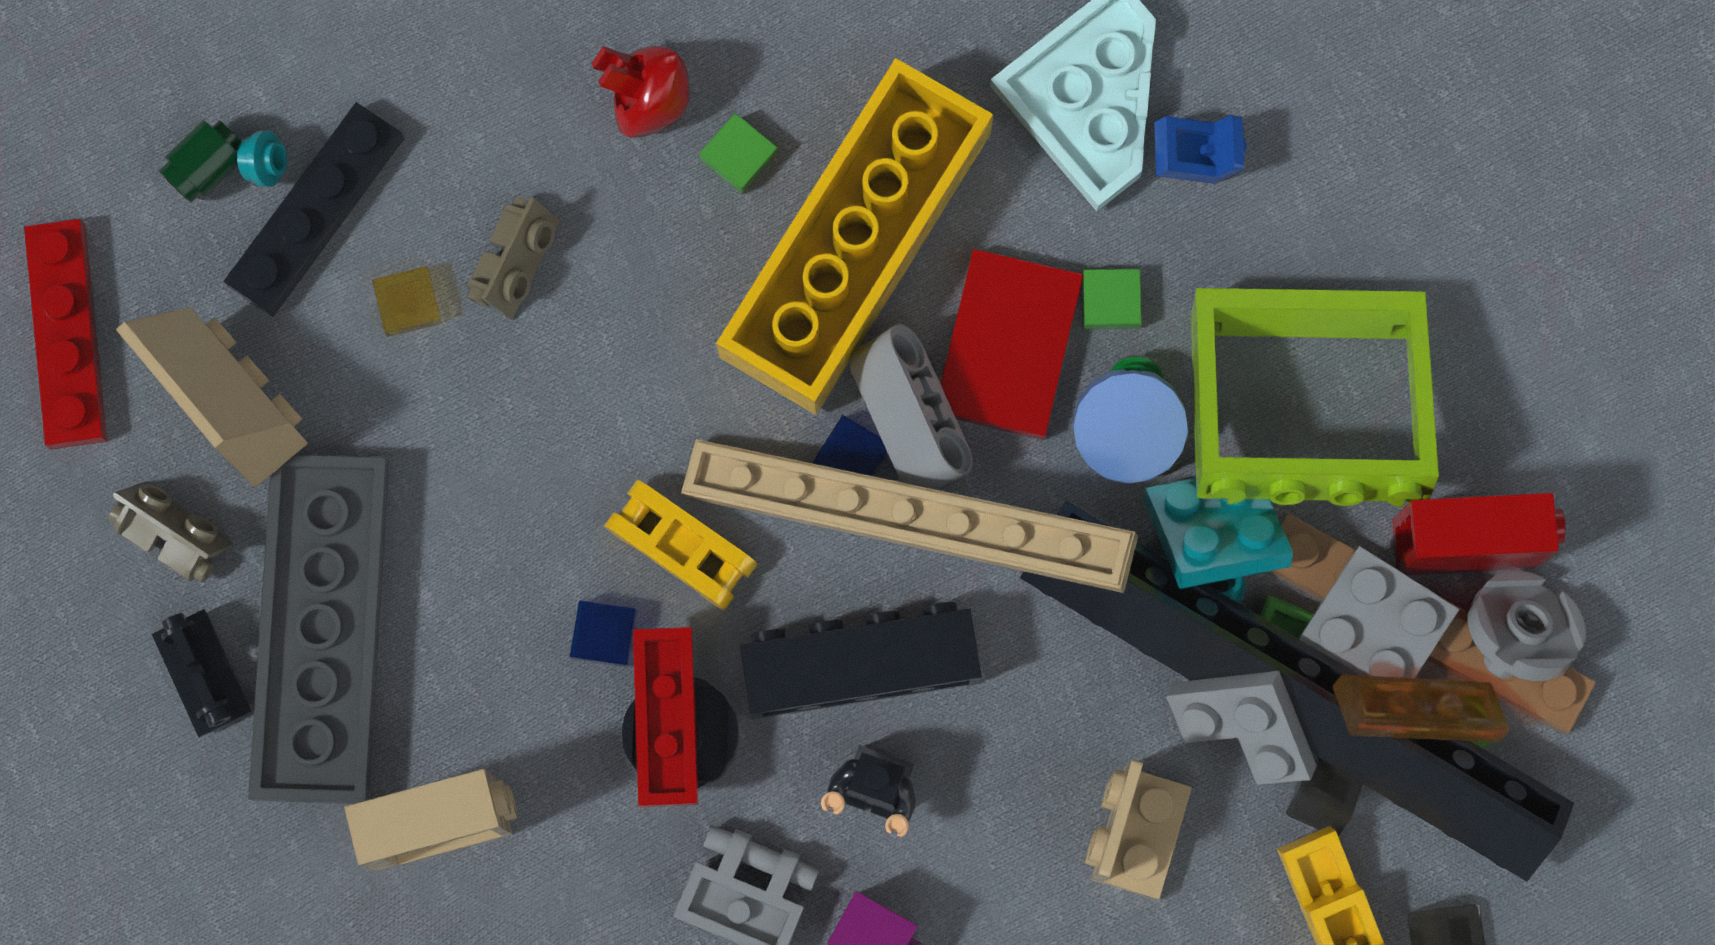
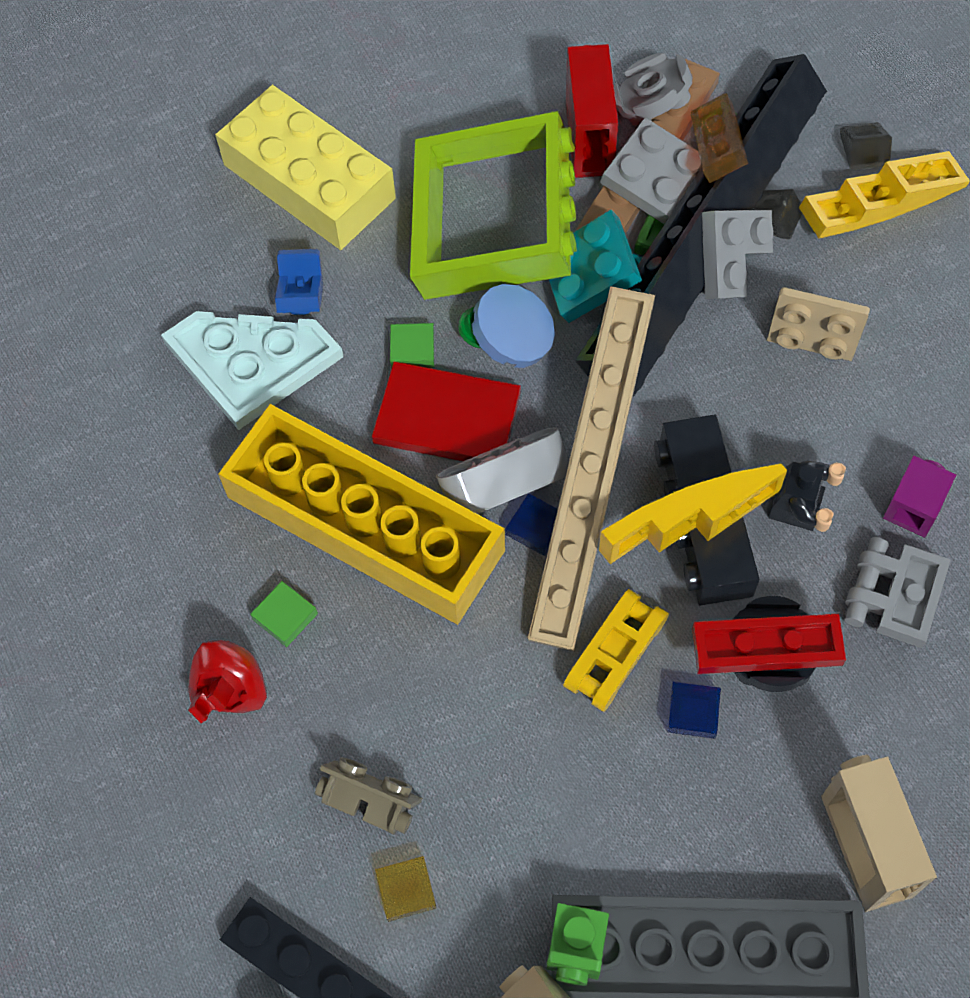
camera: 90 degrees left, 15 degrees down
(323, 479) = (577, 944): none -> bright green bracket
(835, 649) = (705, 506): none -> yellow slope
(1389, 148) = (306, 166): none -> light yellow brick

